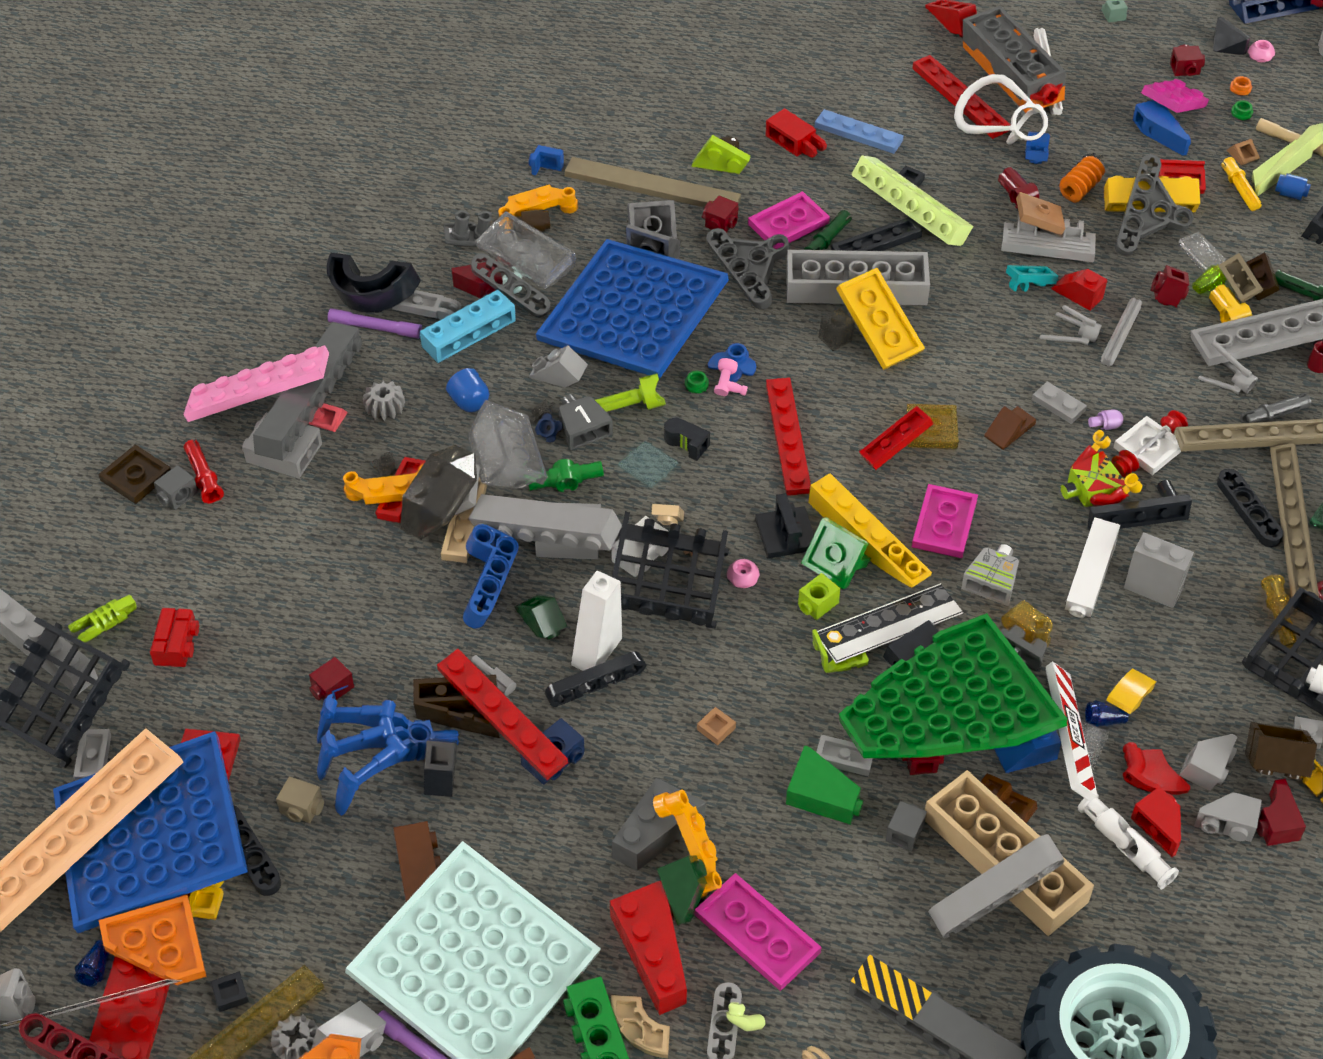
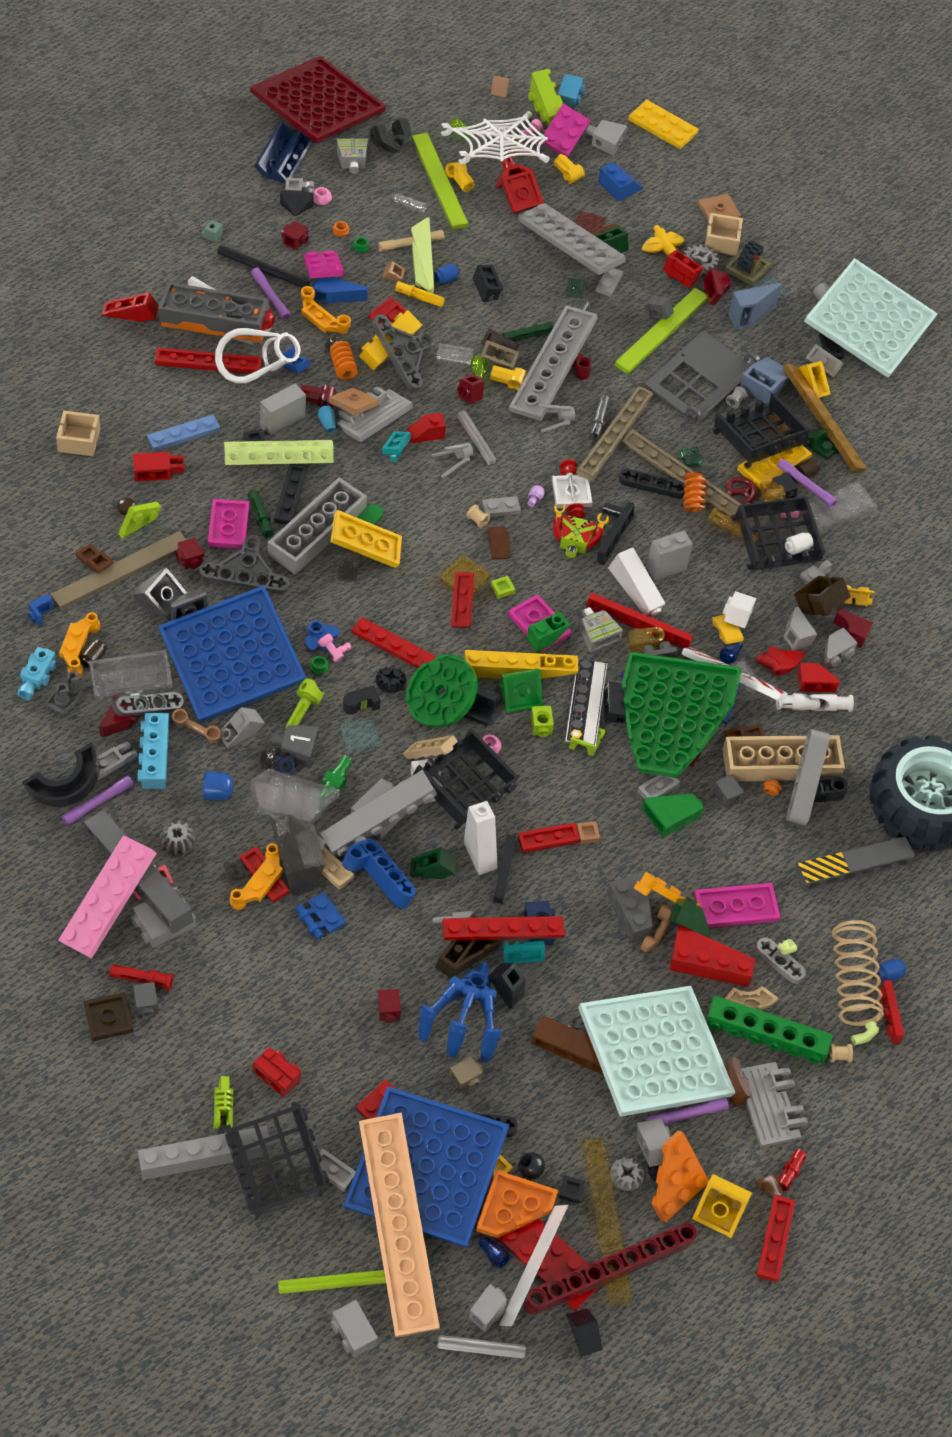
camera: 60 degrees left, 5 degrees up
(228, 932) = (531, 1165): none -> black piece
(402, 566) = (326, 913): none -> blue plate
(477, 196) = (42, 662): none -> medium azure brick
(501, 759) = (524, 953): none -> teal plate
(527, 325) = (181, 719): none -> medium nougat bar
(622, 870) = (652, 942): none -> medium nougat bar
(643, 159) = (93, 558): none -> reddish brown slope
(673, 693) = (548, 837): none -> red plate
(737, 453) = (396, 684): none -> black gear
(772, 64) = (78, 433): none -> tan piece
(772, 473) = (424, 688): none -> green plate
(921, 312) = (372, 514): none -> green tile
(929, 524) = (546, 631): none -> green slope
(955, 463) = (502, 587): none -> lime plate
(959, 868) = (772, 787): none -> orange plate
(961, 169) = (282, 409): none -> light grey brick
(999, 211) = (327, 418): none -> dark azure cone
(1013, 925) = (827, 789): none -> black piece
(1021, 386) = (478, 516): none -> tan bush
(1045, 600) = (637, 620): none -> red plate
(1102, 75) = (279, 306): none -> medium lavender piece
(1115, 133) = (320, 316): none -> light orange plate
(1120, 64) = (264, 267): none -> black axle
(1166, 682) = (739, 609): none -> white brick
(1249, 27) = (298, 185): none -> light grey plate
(1276, 544) = (693, 492): none -> orange piece

